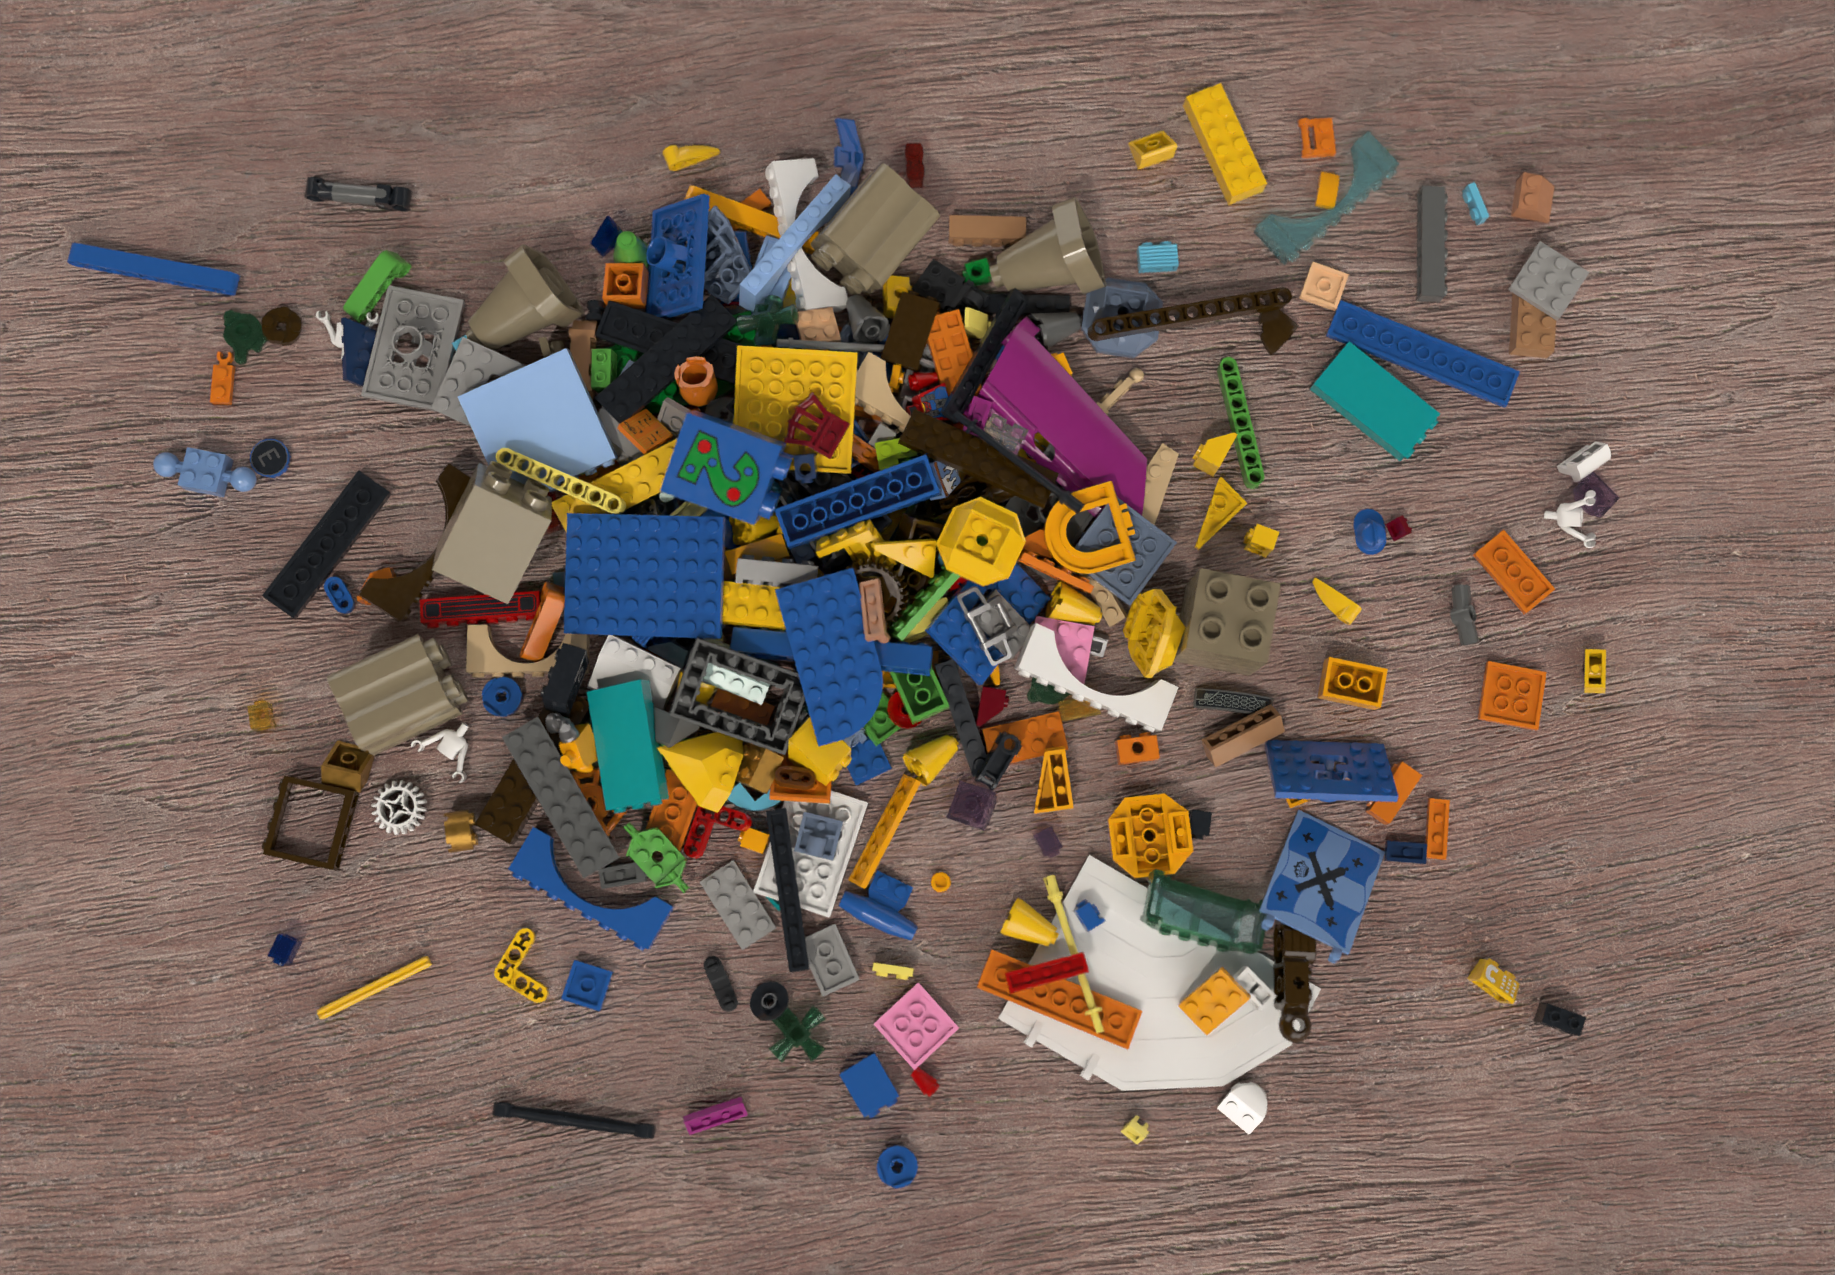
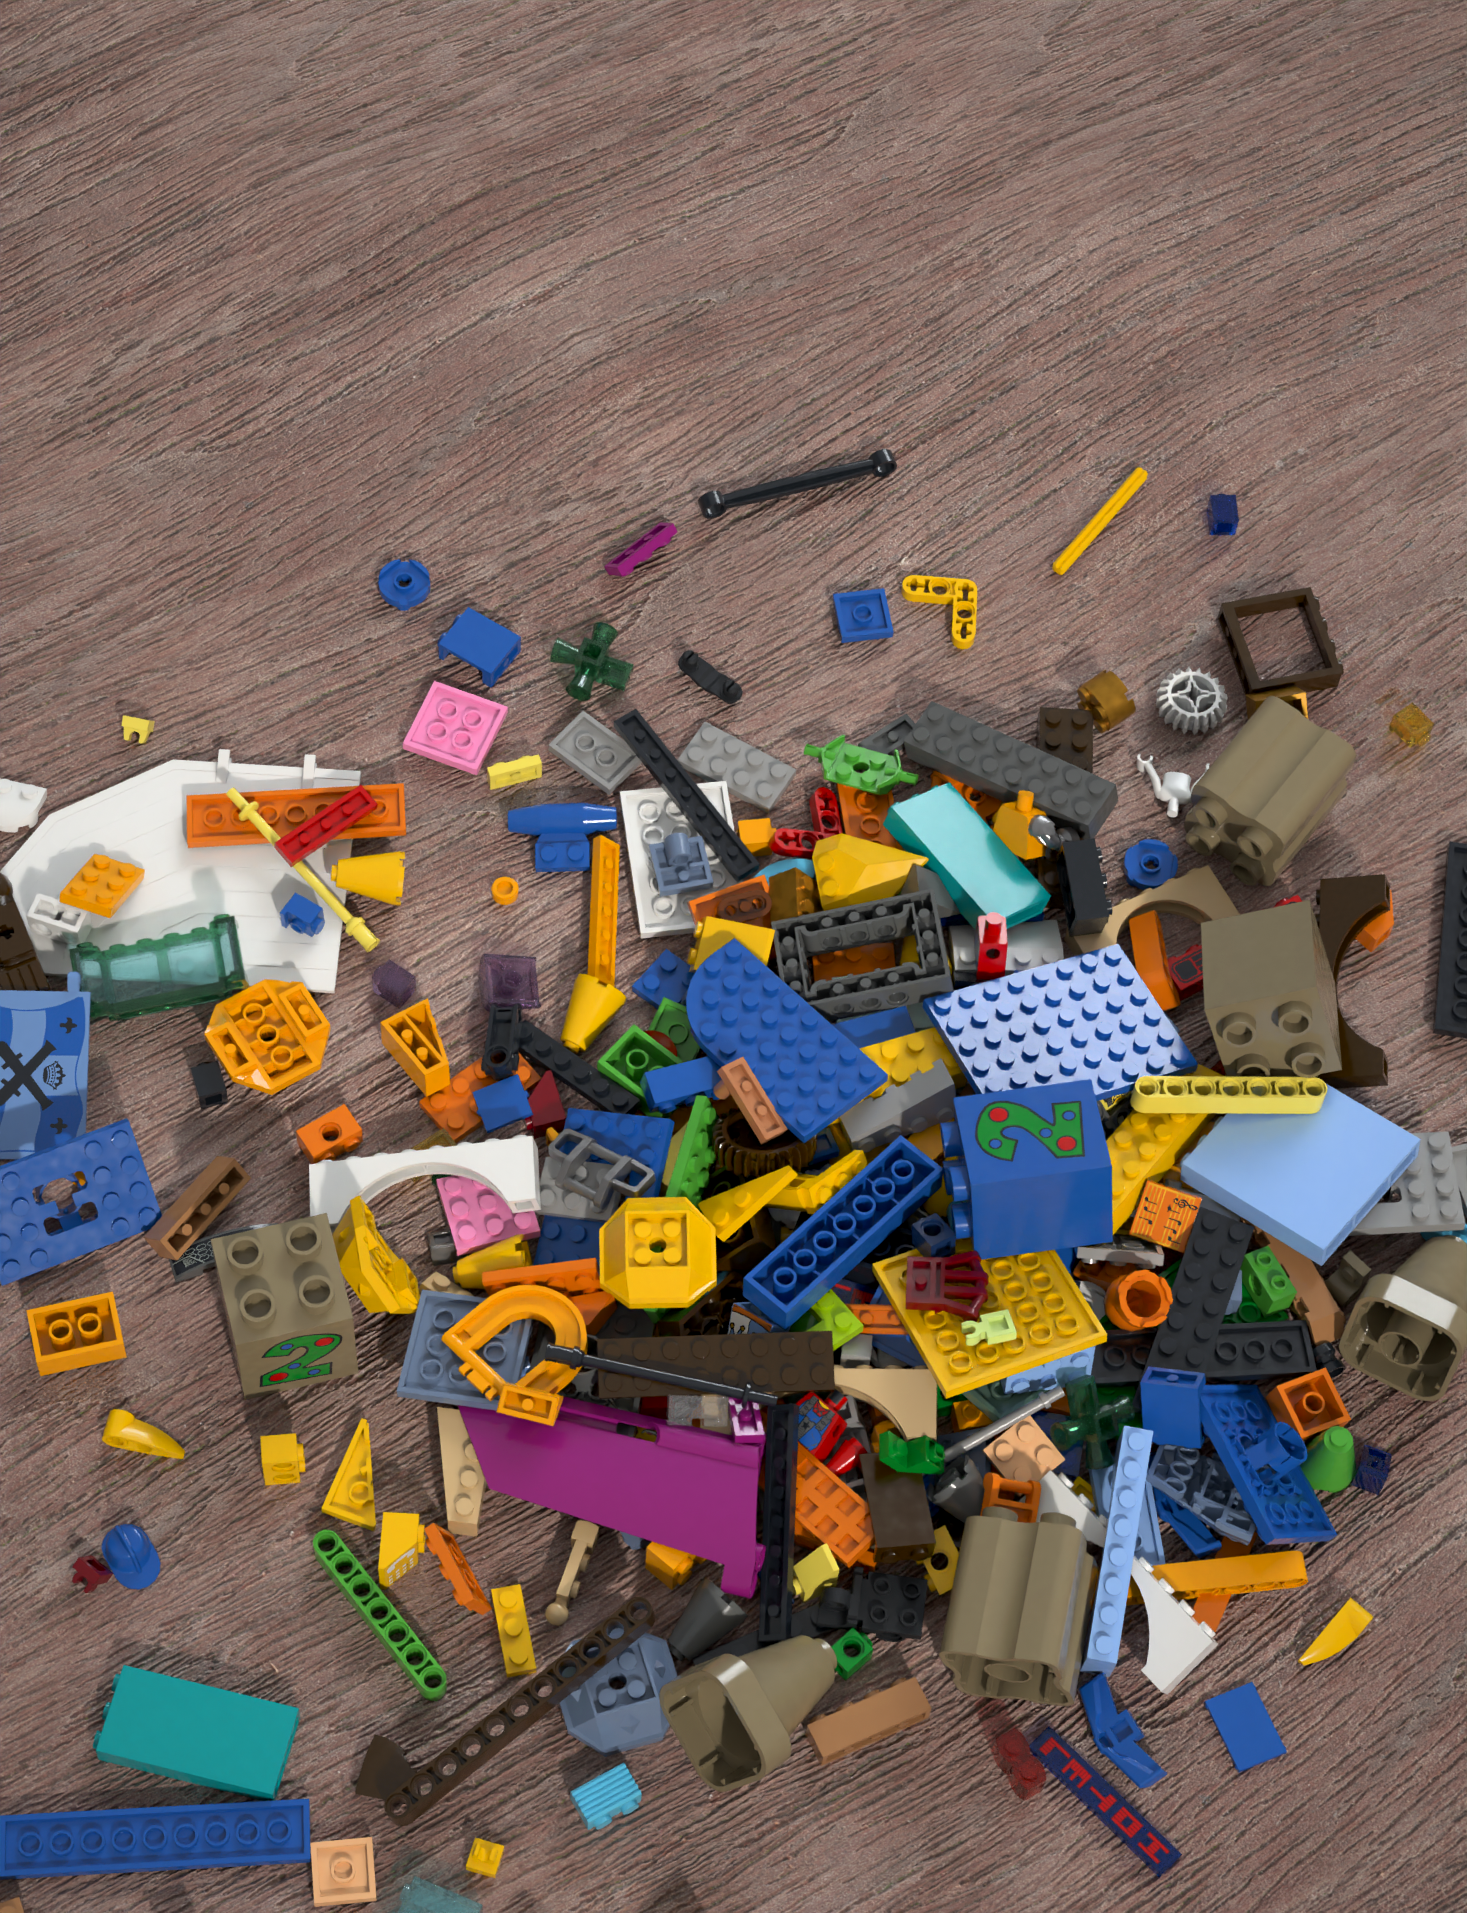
camera: 155 degrees right, 20 degrees down
(339, 596) = (1414, 891): blue plate -> none
(538, 865) = (848, 695): blue arch -> none
(652, 662) = (990, 934): none -> red torso
(713, 306) = (1173, 1406): none -> blue panel
(764, 995) = (651, 676): black dish -> none
(771, 131) = (1245, 1727): none -> blue piece
(805, 379) = (993, 1327): none -> yellowish green plate
(845, 293) = (1031, 1489): none -> orange plate
(874, 122) = (1104, 1801): none -> clear blue tile
(887, 351) = (915, 1456): none -> green slope
(925, 1082) = (414, 676): red cone -> none
(1018, 716) = (502, 1103): none -> blue piece
(1105, 483) = (529, 1403): none -> light orange slope
(1164, 380) = (513, 1630): none -> yellow plate
(1185, 422) = (456, 1568): none -> orange plate
(1239, 259) = (485, 1857): none -> yellow tile

